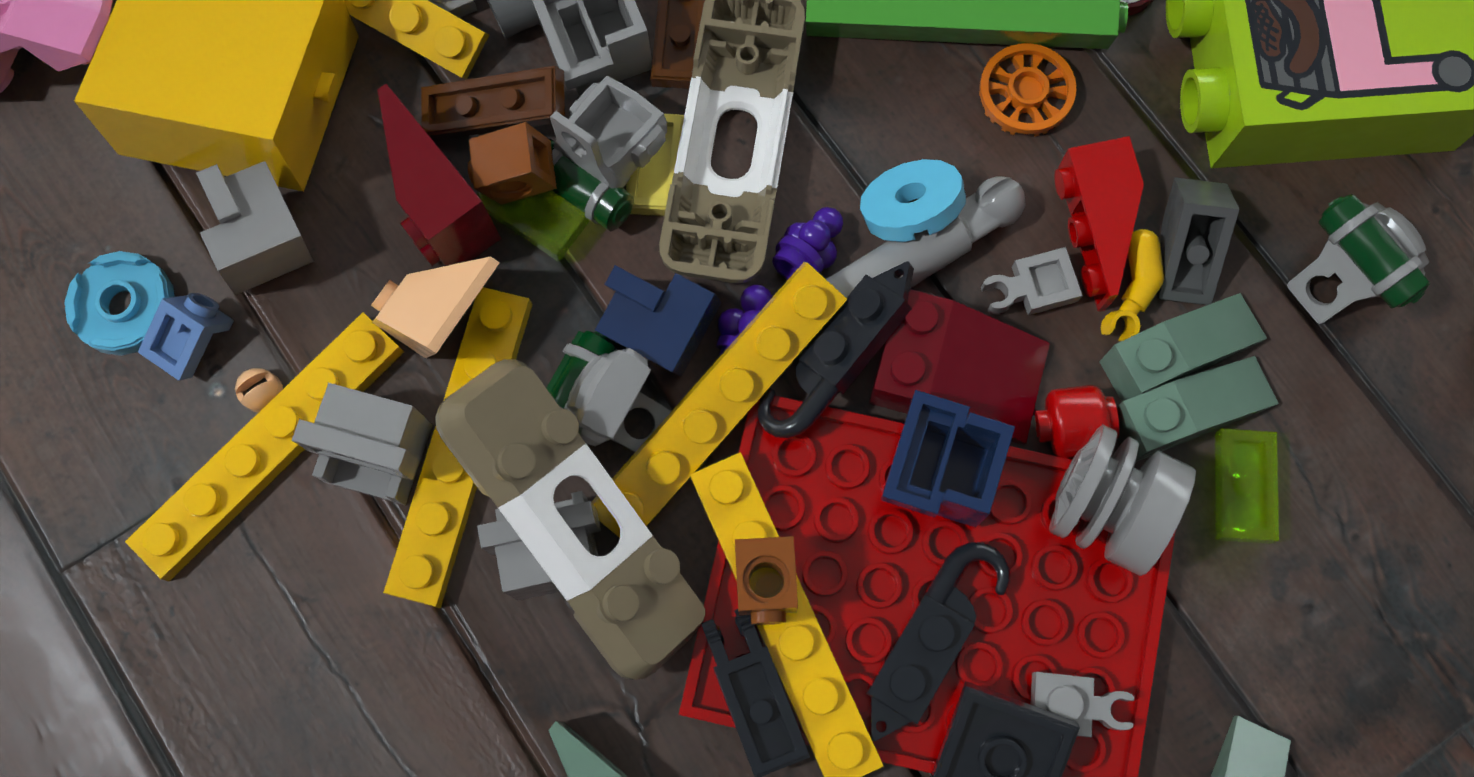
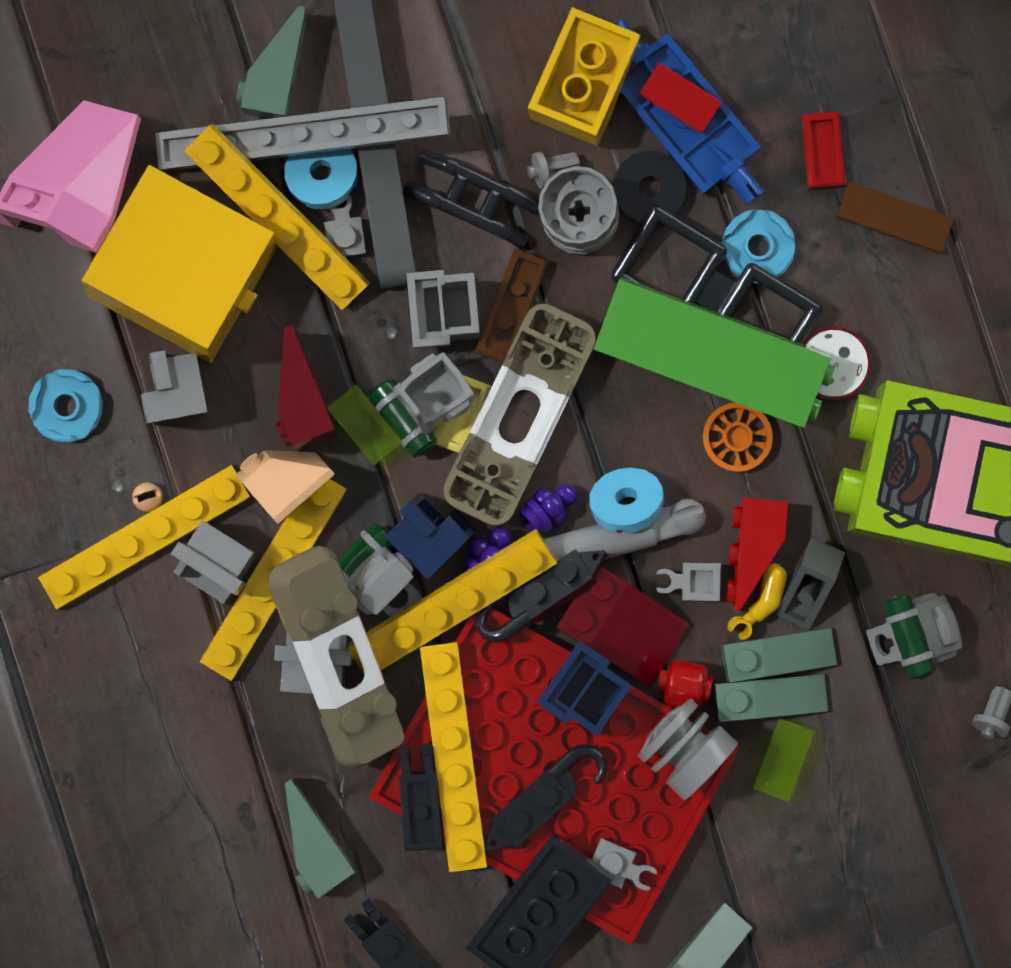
camera: 15 degrees right, 10 degrees up
(182, 333) = (107, 444): medium blue bracket -> none
(492, 102) = (358, 343): reddish brown tile -> none
(511, 163) = (360, 398): dark orange brick -> none
(766, 553) = (445, 715): dark orange brick -> none

